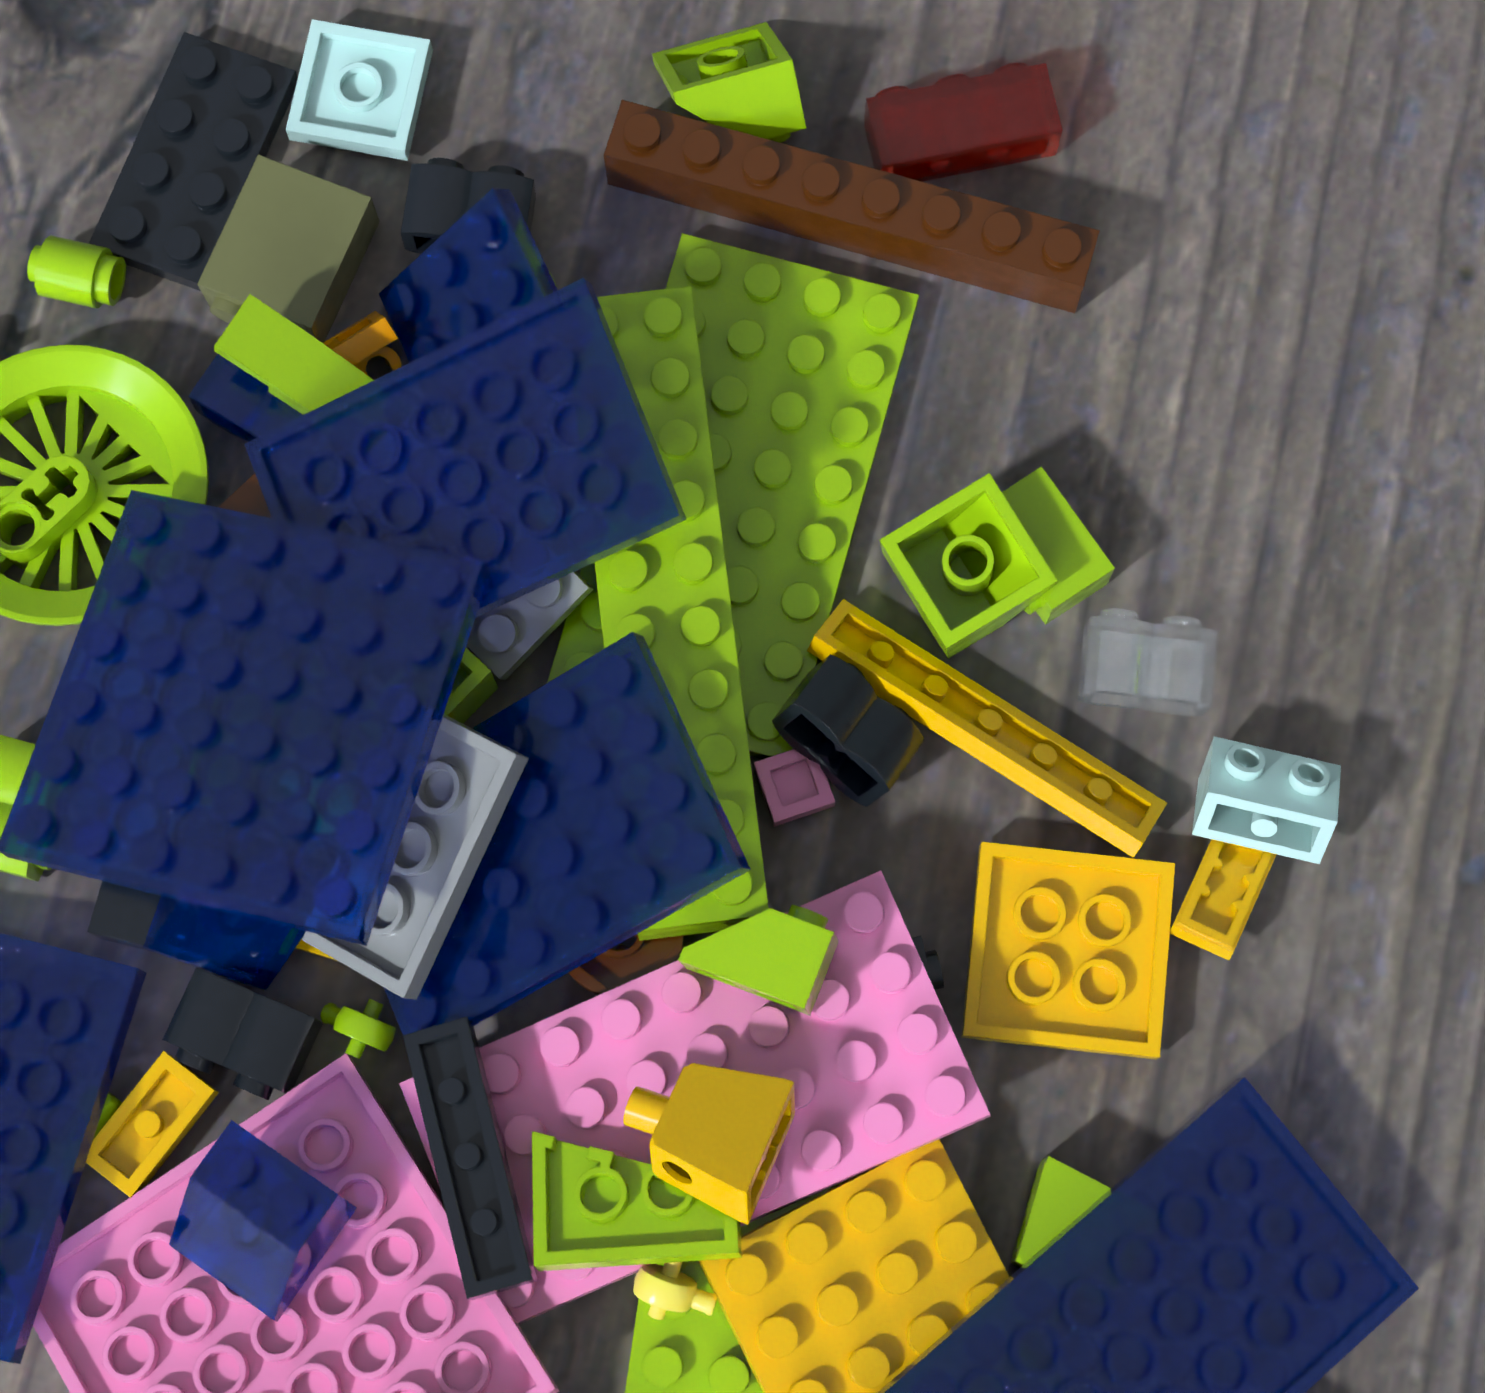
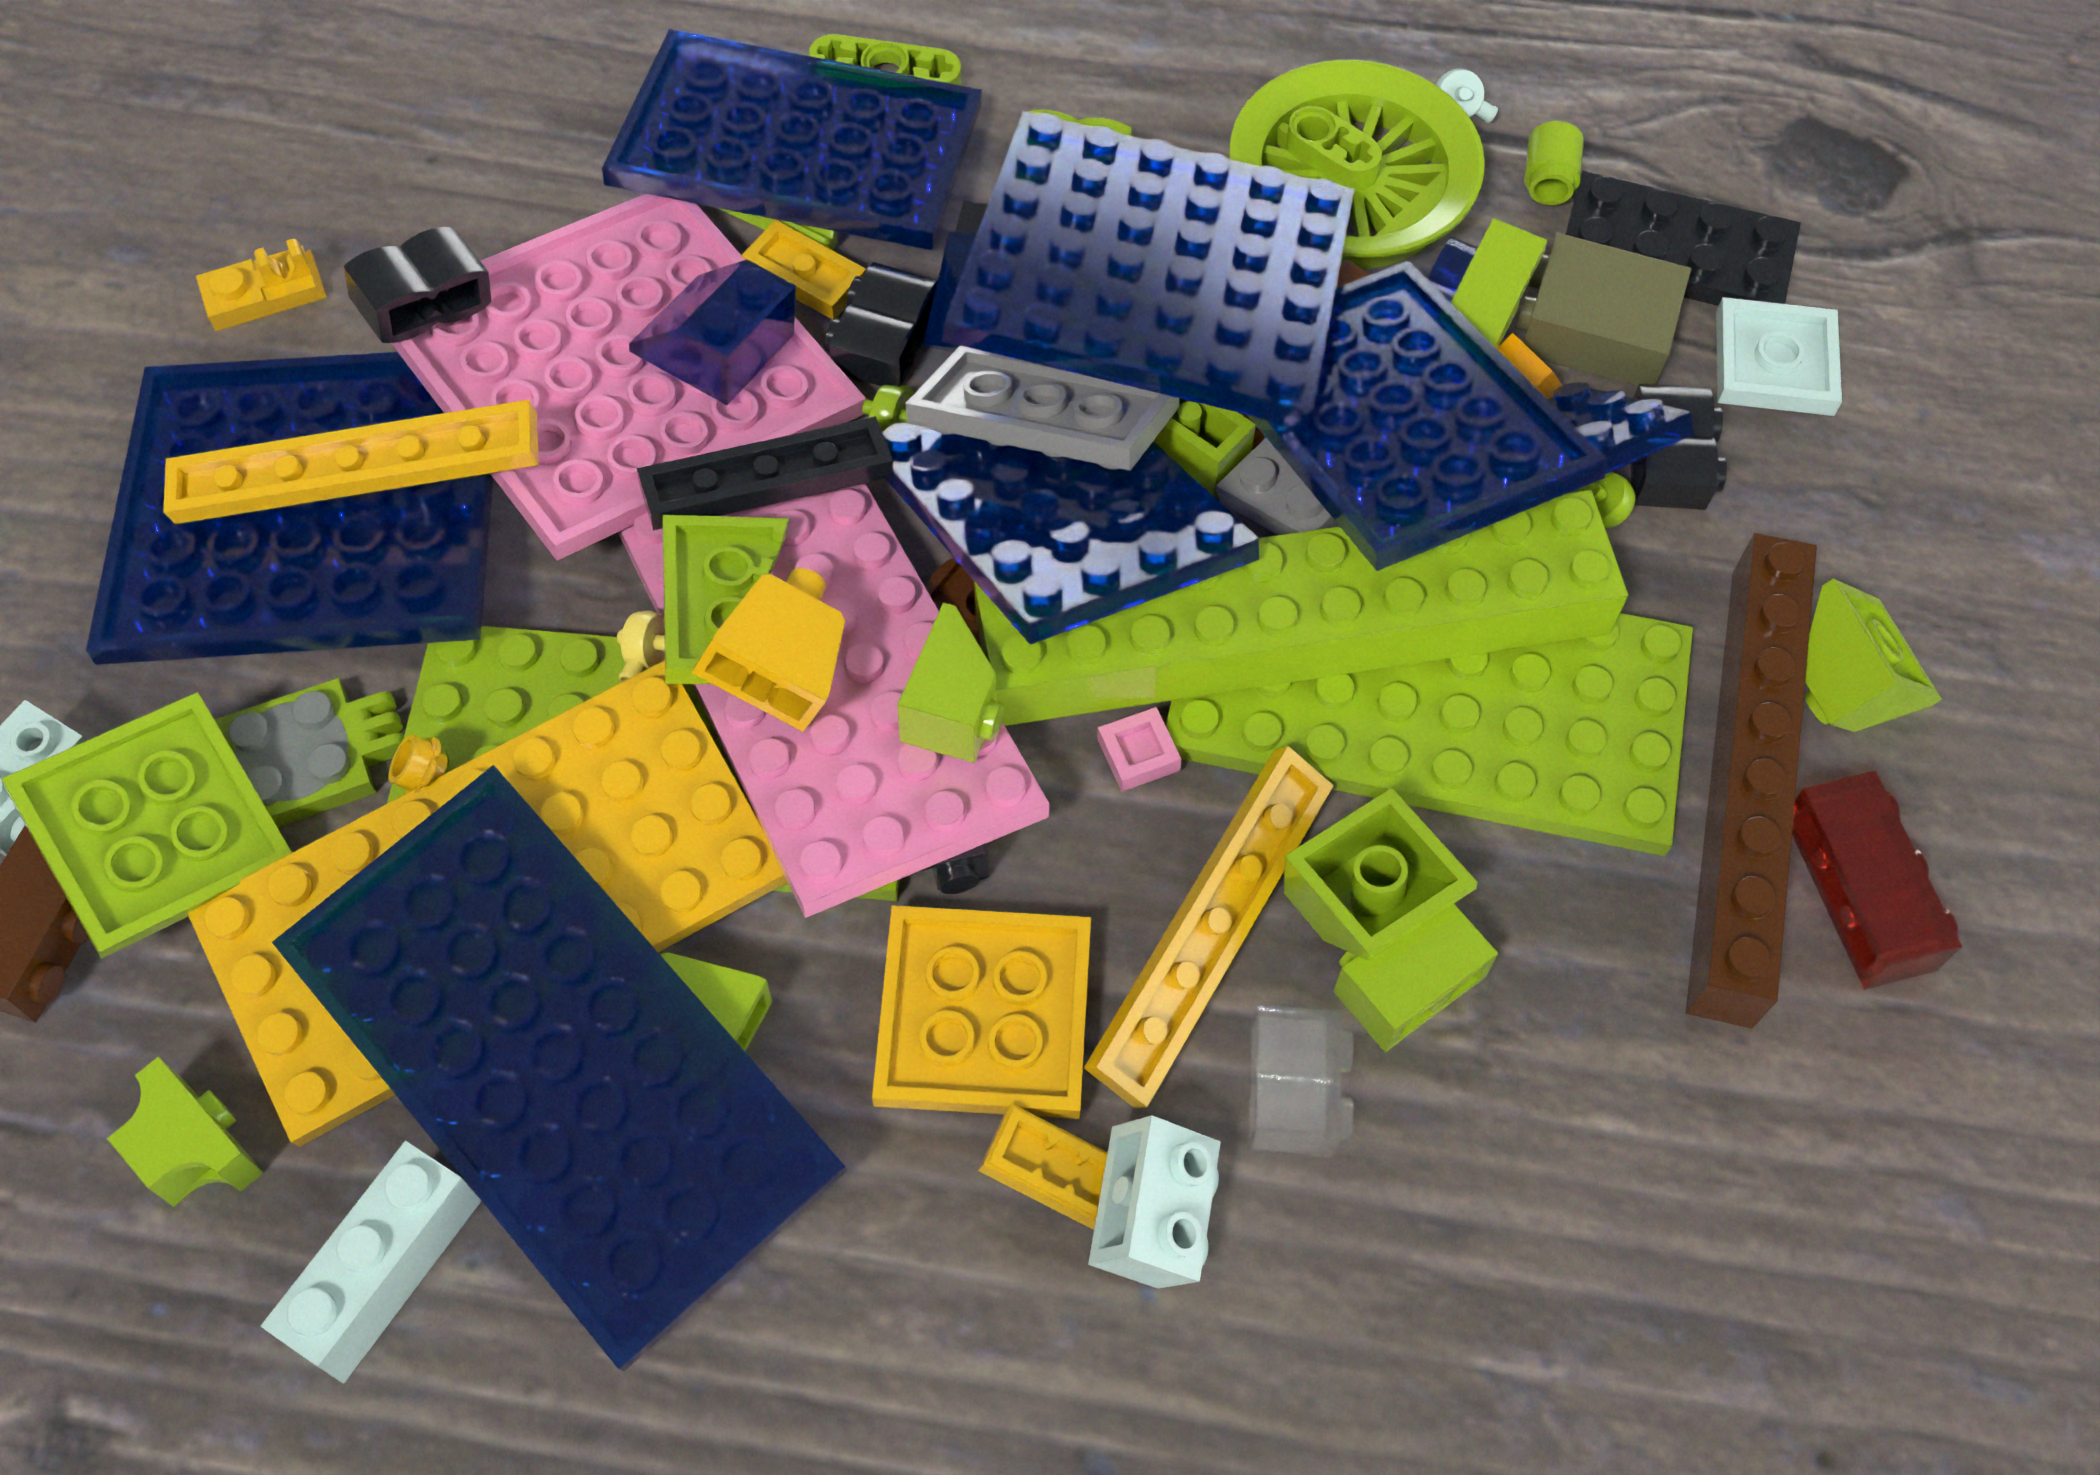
camera: 85 degrees right, 15 degrees down
(848, 730) = (1196, 783): black brick -> none

